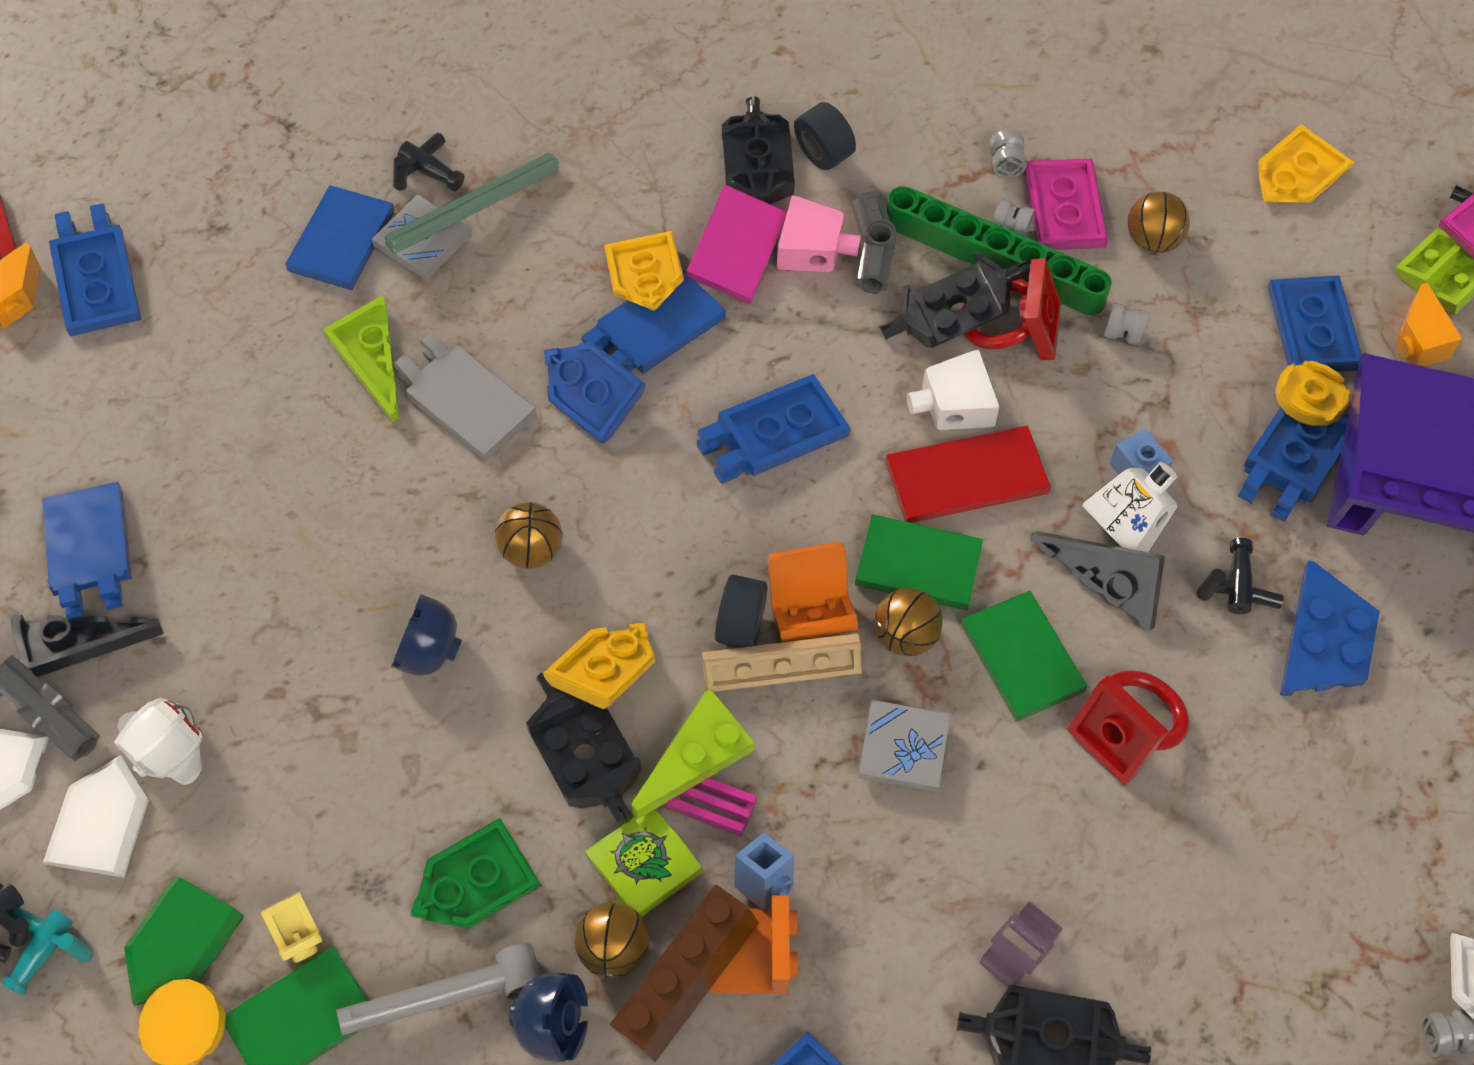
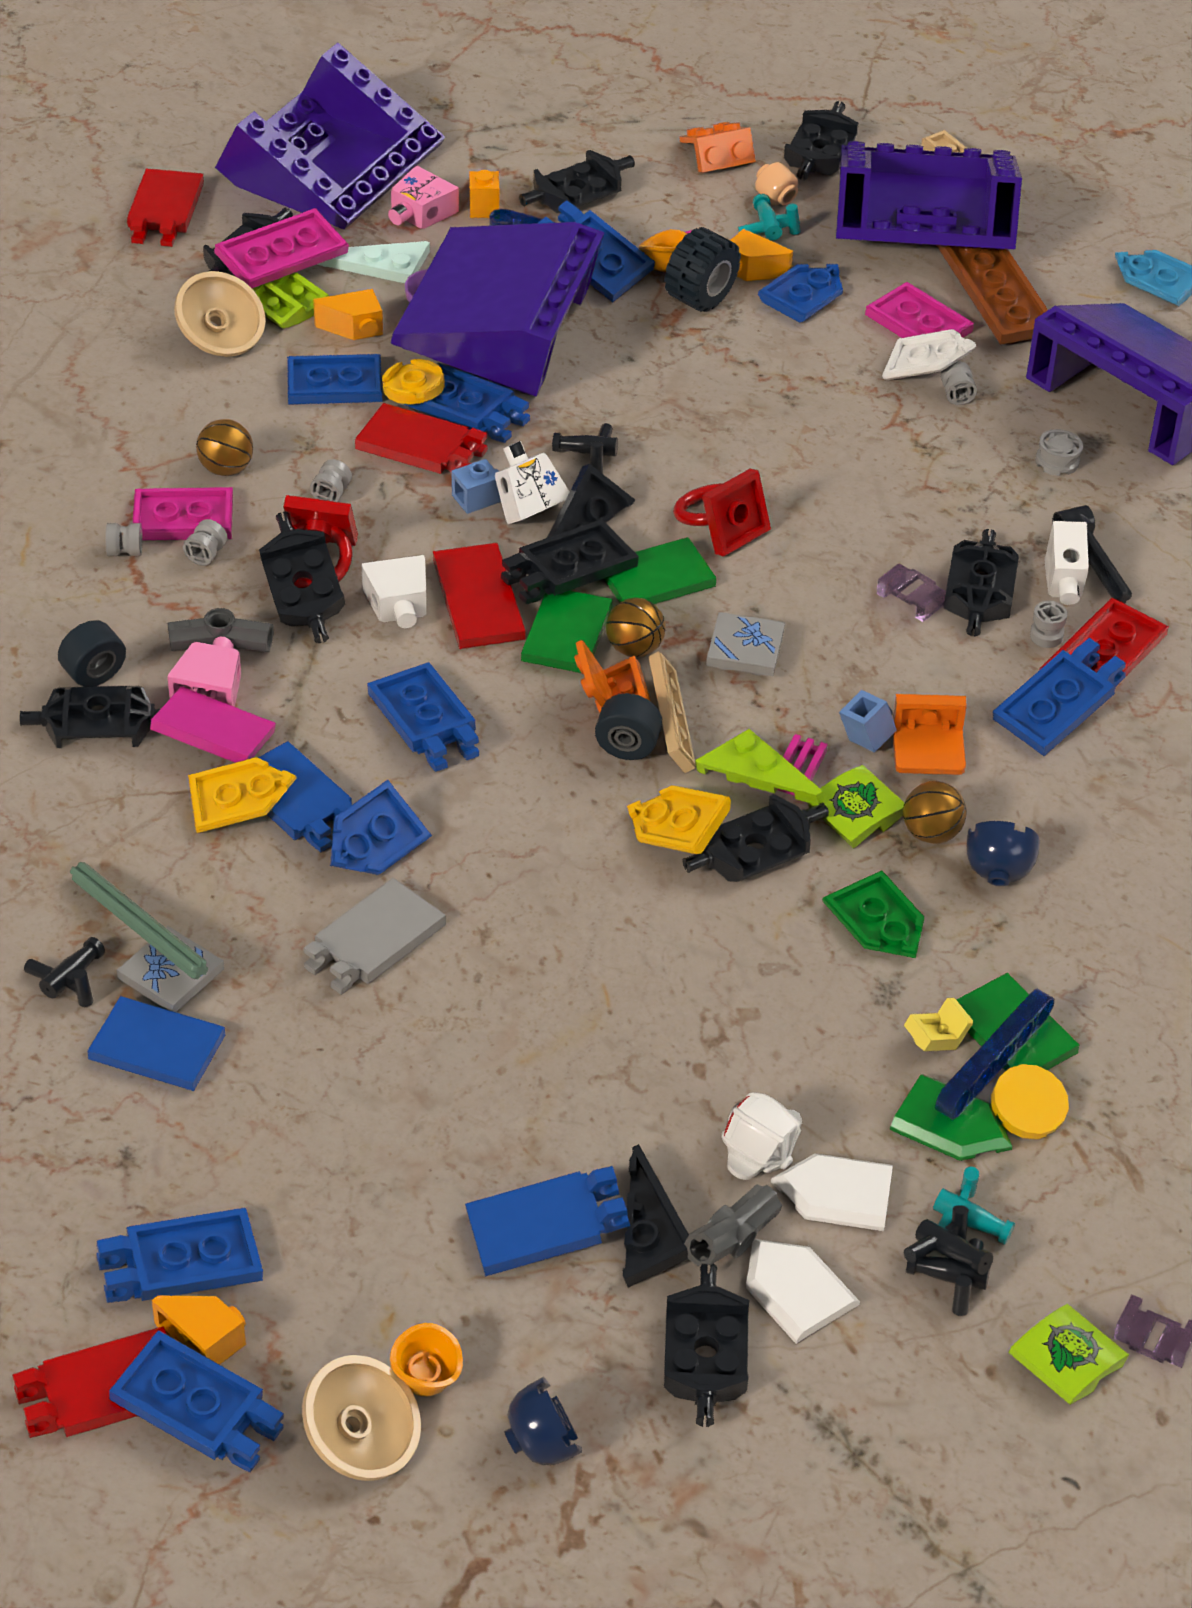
camera: 90 degrees left, 15 degrees down
(238, 983) = (994, 1054): none -> clear blue beam
(365, 347) = (315, 1009): lime wing -> none
(427, 639) = (652, 944): dark blue cylinder -> none
(514, 969) = (967, 883): light grey piece -> none
(528, 535) = (545, 870): pearl gold piece -> none
(685, 973) = (955, 761): reddish brown brick -> none
(965, 234) = (233, 557): green beam -> none
(1018, 555) = (568, 561): none -> black tile
(1221, 407) = (420, 439): none -> red tile
(1300, 168) = (162, 366): yellow tile -> none
(1329, 635) = (636, 406): blue wing -> none
(1377, 177) = (228, 303): none -> tan dish

